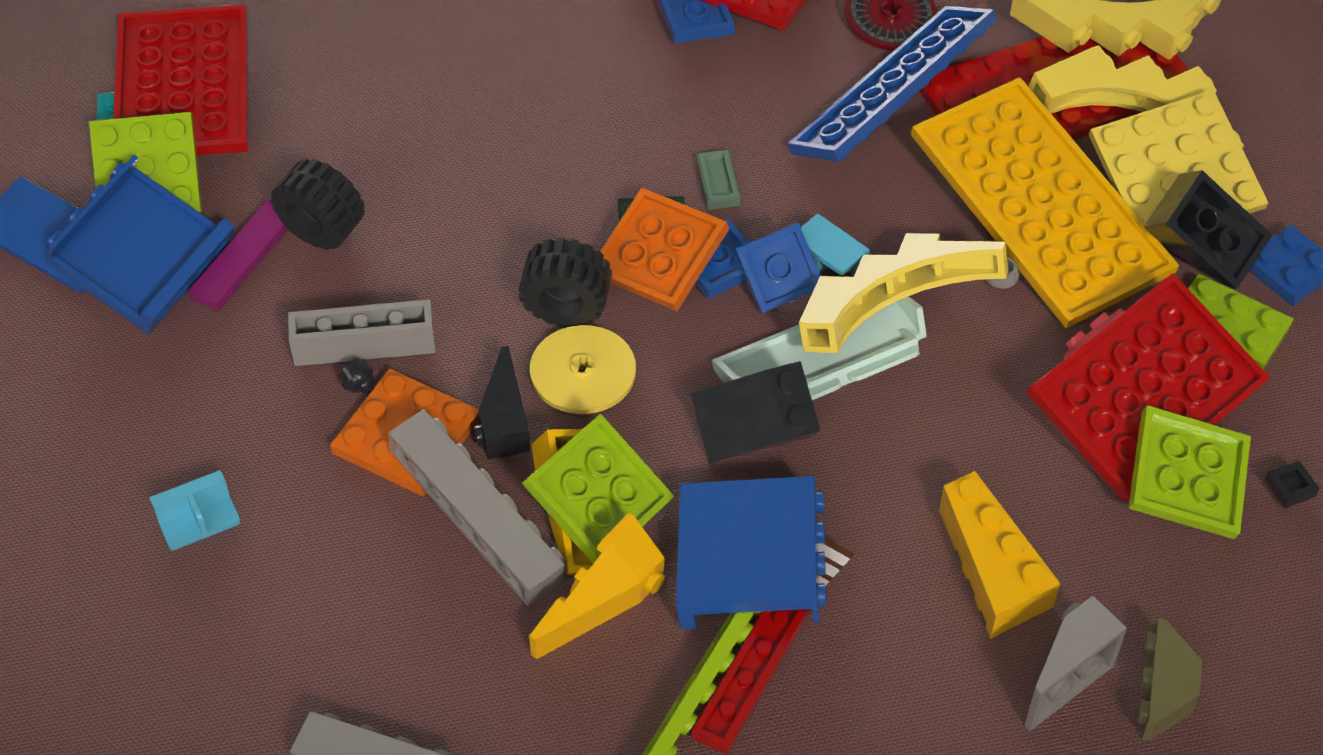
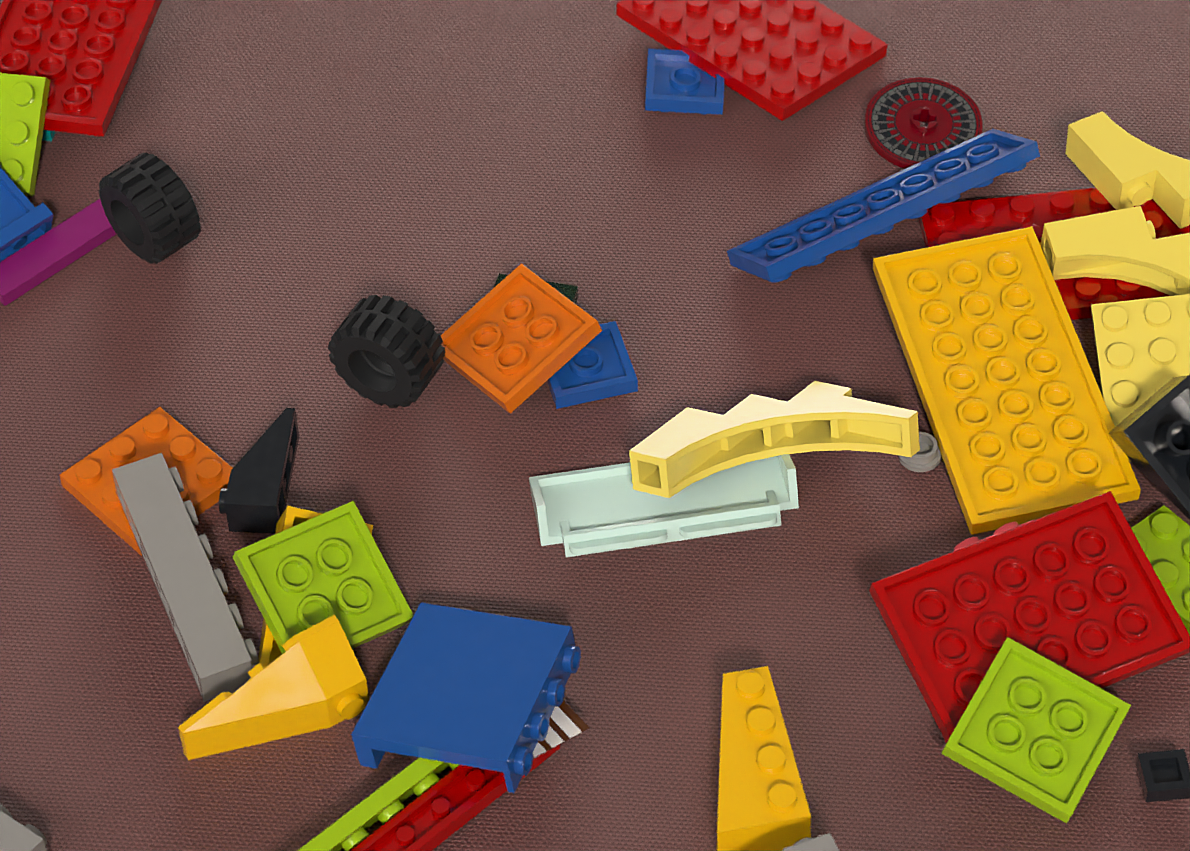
camera: 20 degrees right, 5 degrees down
(357, 377) = (120, 407): black plate -> none
(361, 332) = (142, 359): light grey brick -> none
(603, 383) = (404, 469): light yellow piece -> none
(718, 179) = (628, 276): sand green tile -> none
(755, 412) = (543, 544): black slope -> none
(778, 267) = (643, 386): blue plate -> none
(832, 246) = (716, 375): medium azure panel -> none

